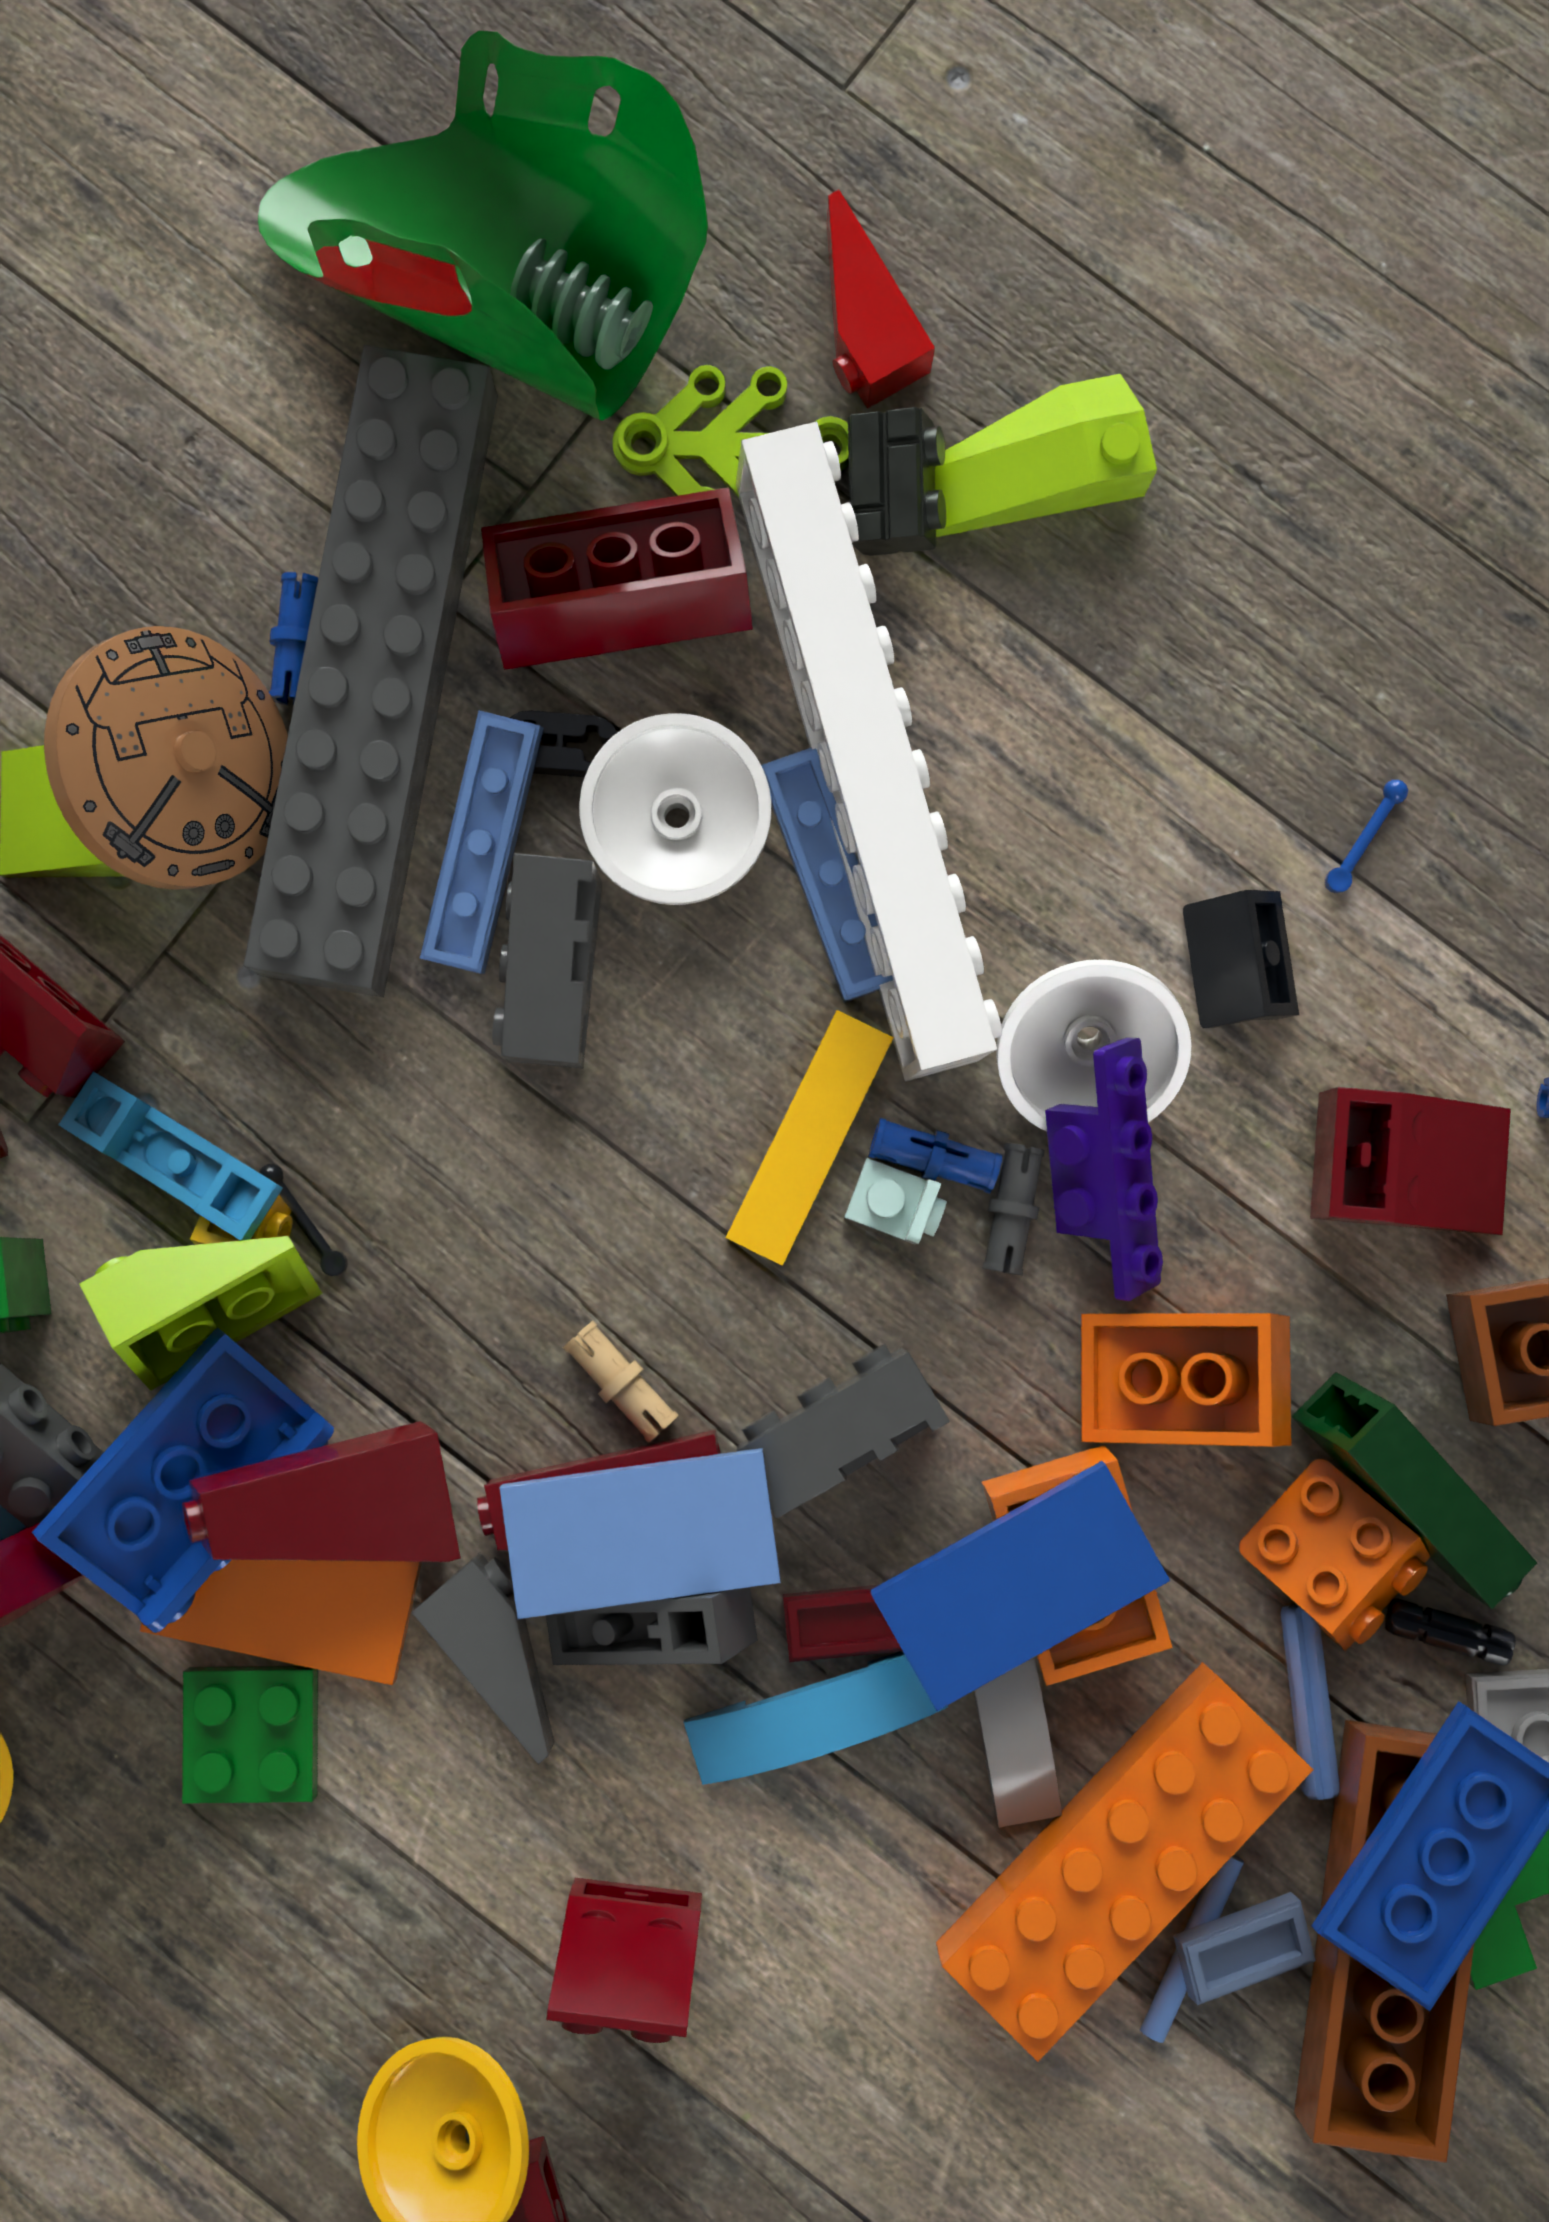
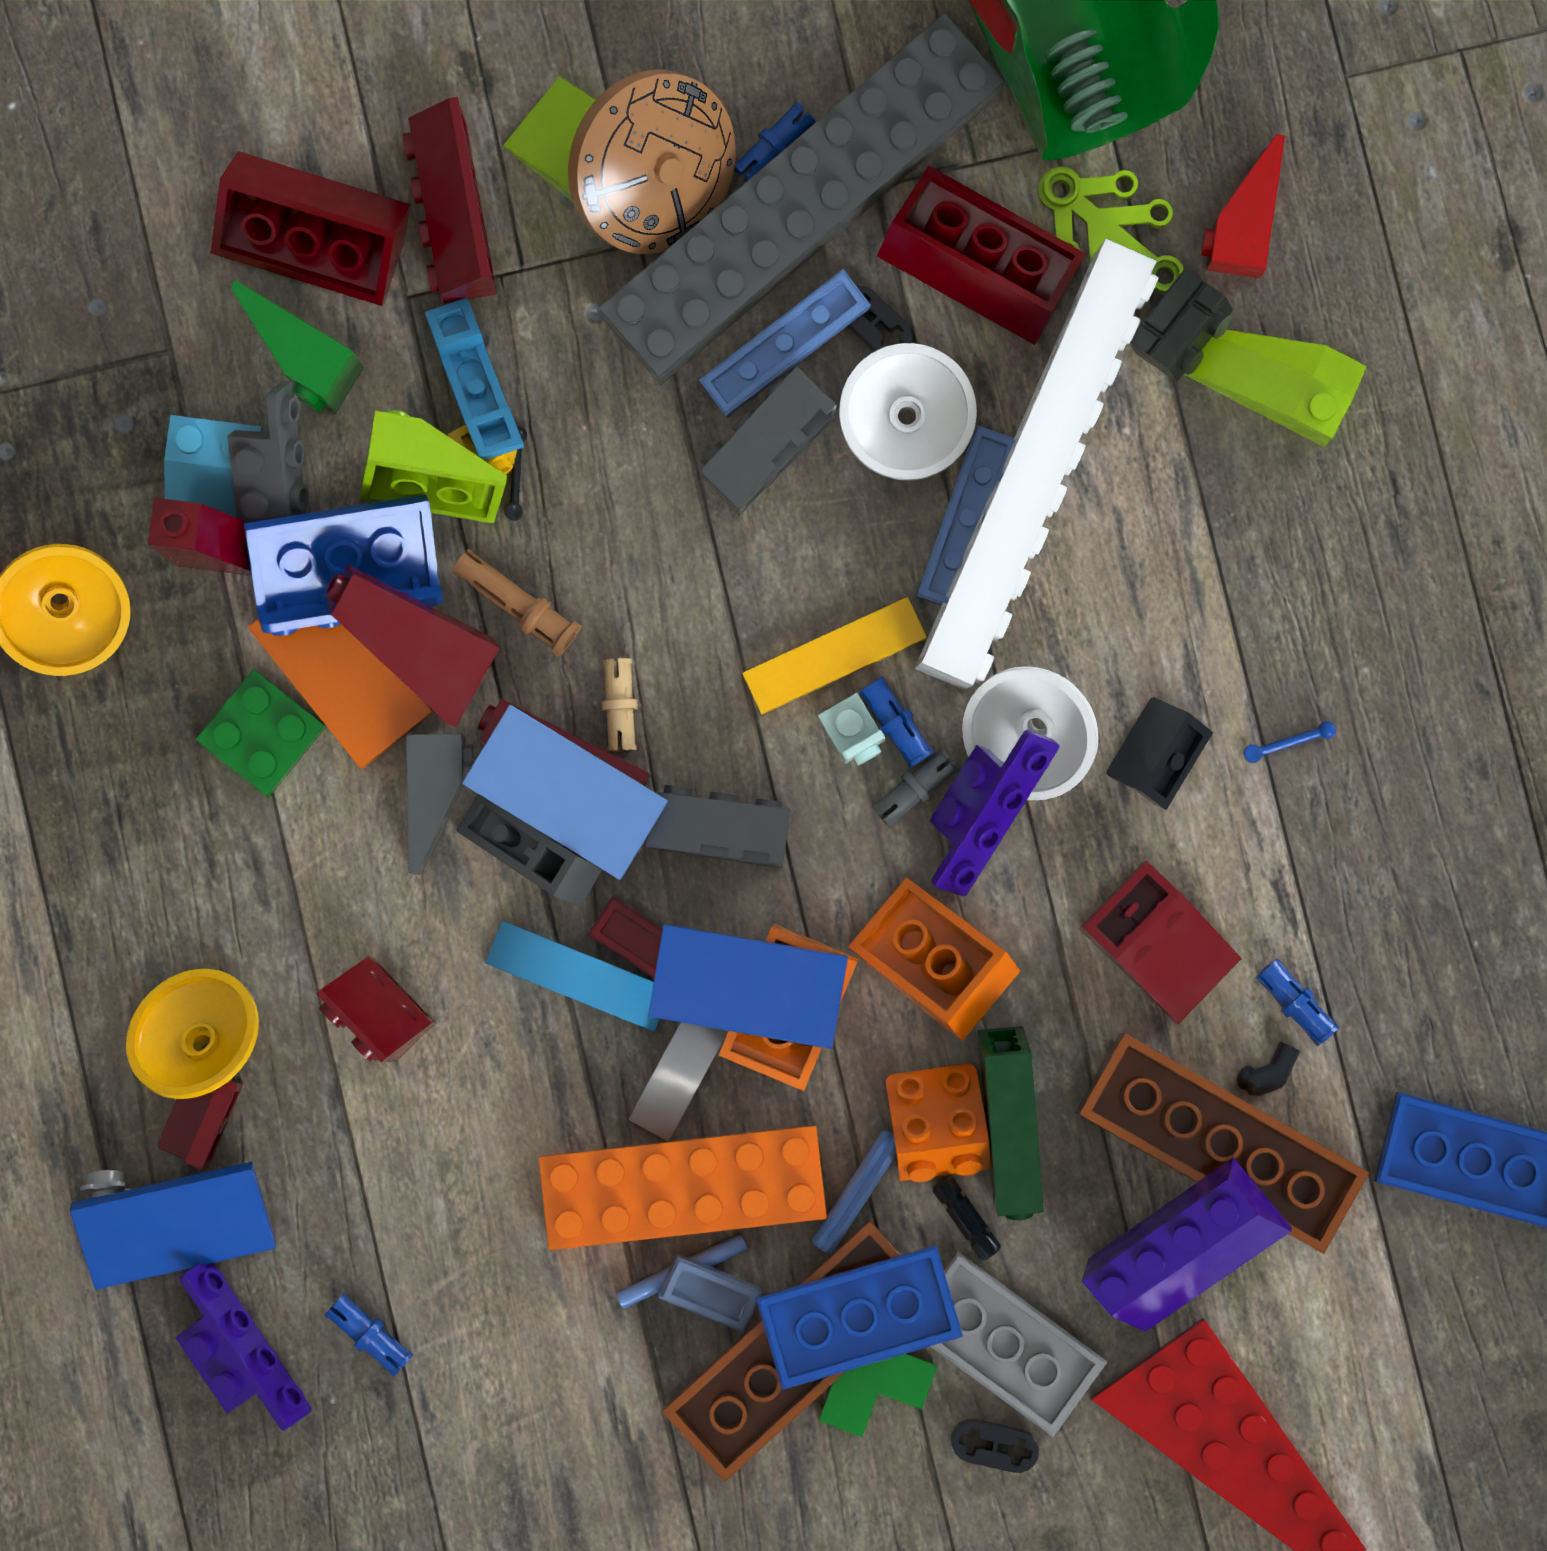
camera: 45 degrees right, 0 degrees up
(446, 1359) = (533, 614): none -> medium nougat pin

